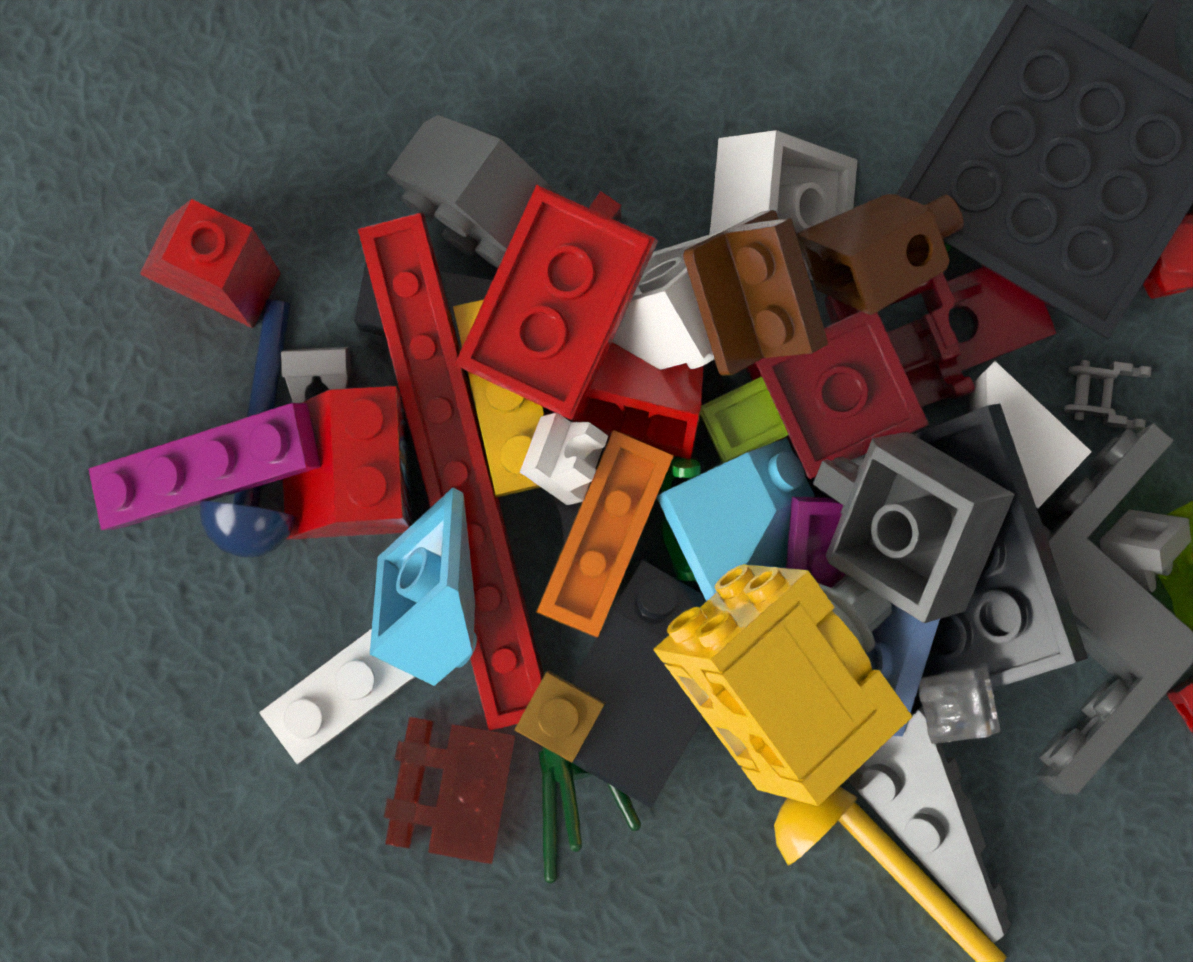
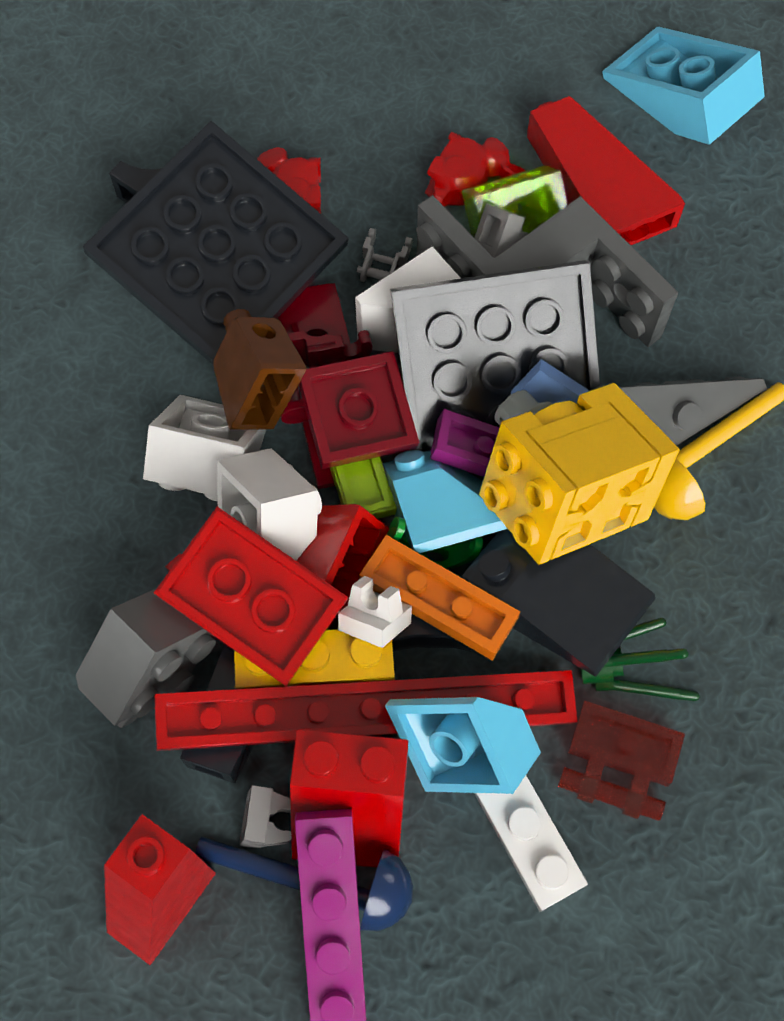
camera: 80 degrees left, 15 degrees down
(559, 716) = (580, 649): pearl gold plate -> none
(755, 293) = (274, 439): reddish brown bracket -> none
(913, 524) = (469, 361): dark grey hinge -> none
(959, 705) = (604, 361): clear tile -> none

